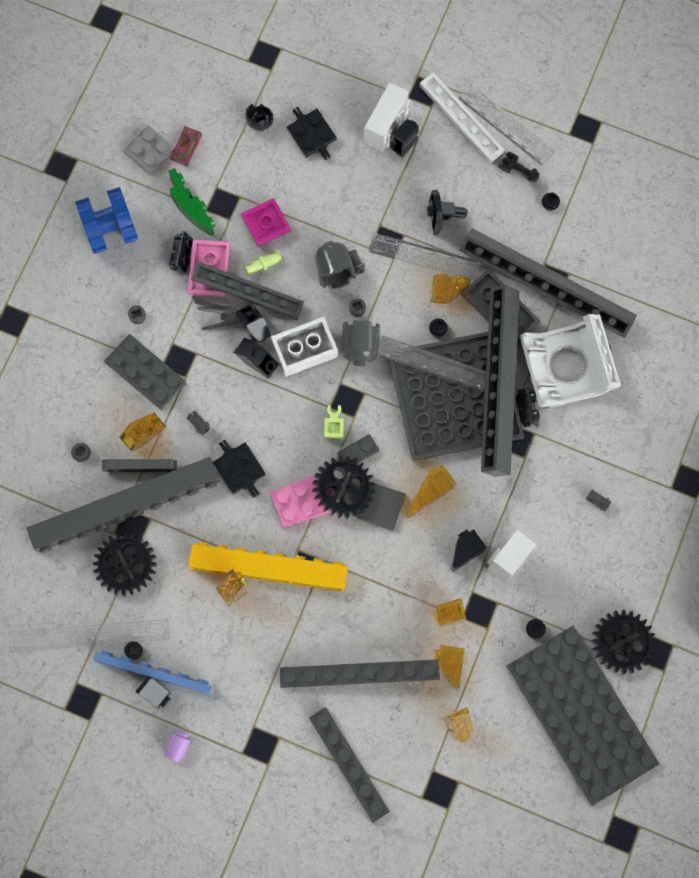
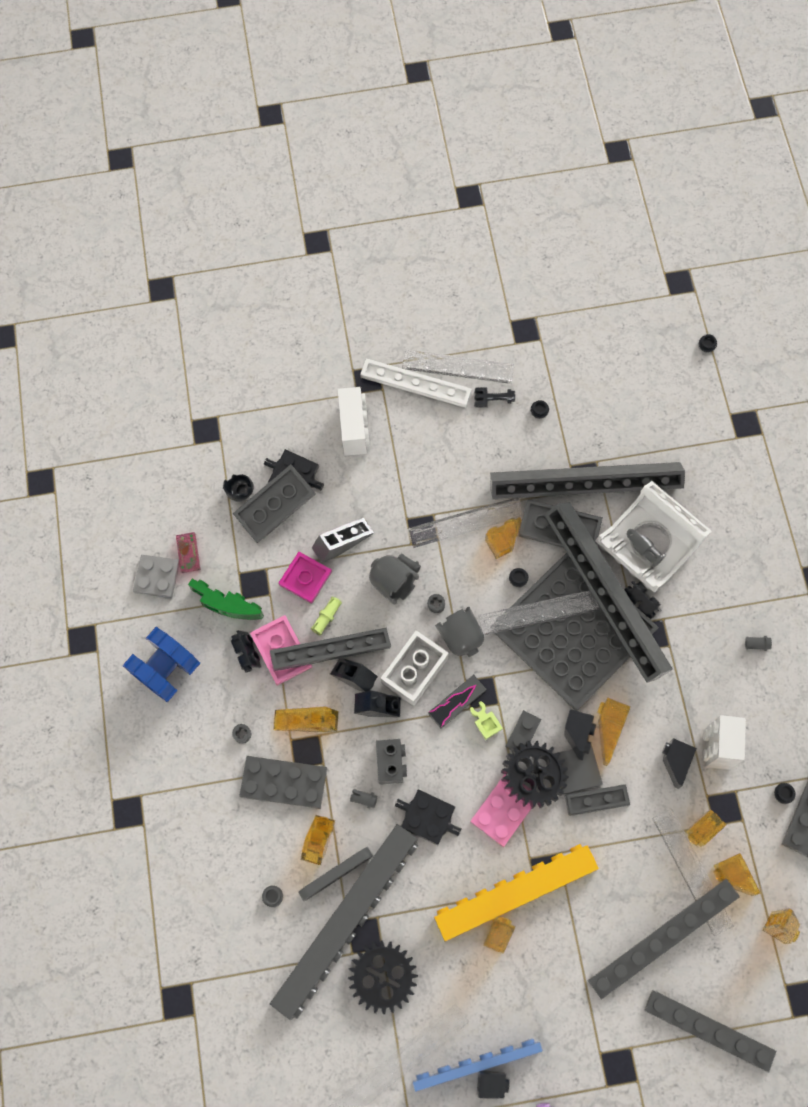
camera: 25 degrees left, 5 degrees down
(134, 644) = (447, 1061): black bush -> none
(193, 334) = (306, 719): none -> clear yellow slope
(228, 313) = (323, 680): dark grey plant -> none
(237, 407) = (390, 761): none -> dark grey brick
(279, 147) = (274, 503): none -> dark grey plate
(314, 209) = (341, 539): none -> dark grey slope
(322, 394) = (457, 701): none -> tile
(381, 539) = (597, 800): none -> dark grey tile
(402, 476) = (578, 730): none -> black slope
(404, 137) = (380, 429): black brick -> none
(442, 210) = (453, 474): black piece -> none
(557, 365) = (644, 546): none -> dark grey piece

